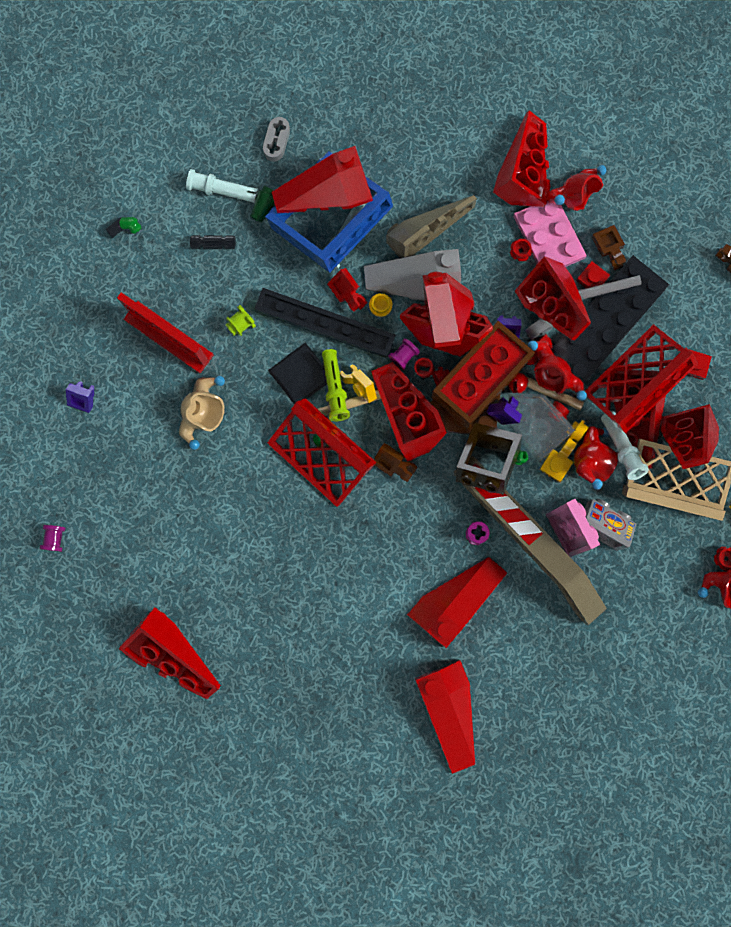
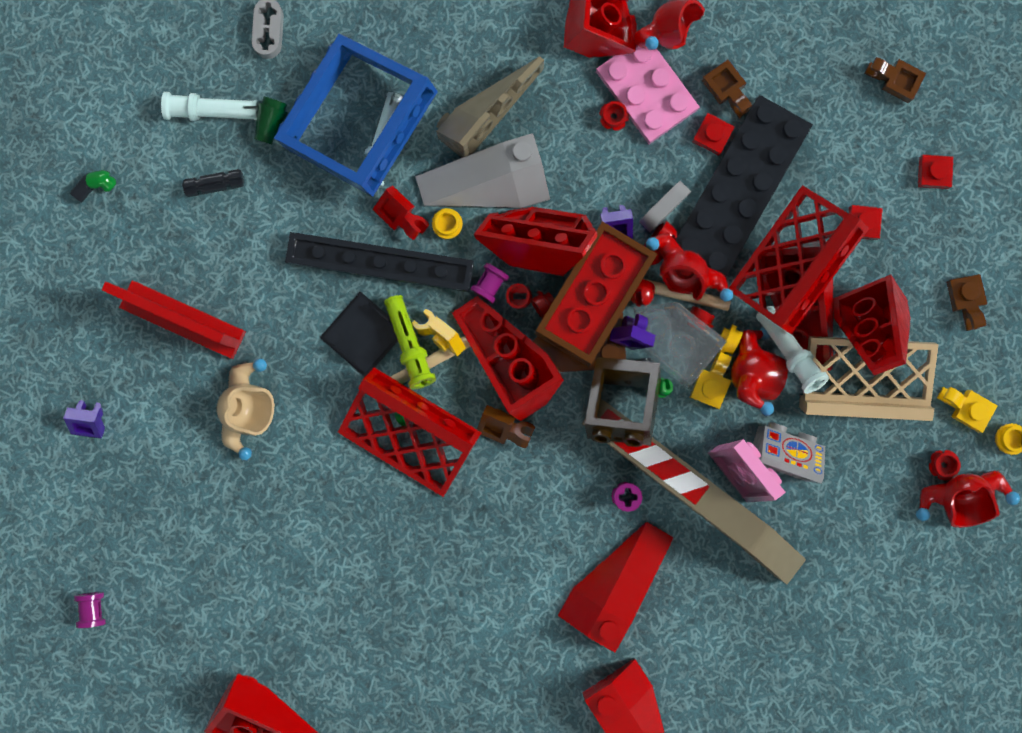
camera: 10 degrees left, 5 degrees up
(239, 322) = (269, 283): lime brick -> none
(330, 183) = (348, 80): red wedge -> none
(447, 308) = (535, 218): wedge -> none
(554, 297) = (669, 174): red wedge -> none
(610, 287) = (717, 153): light grey piece -> none

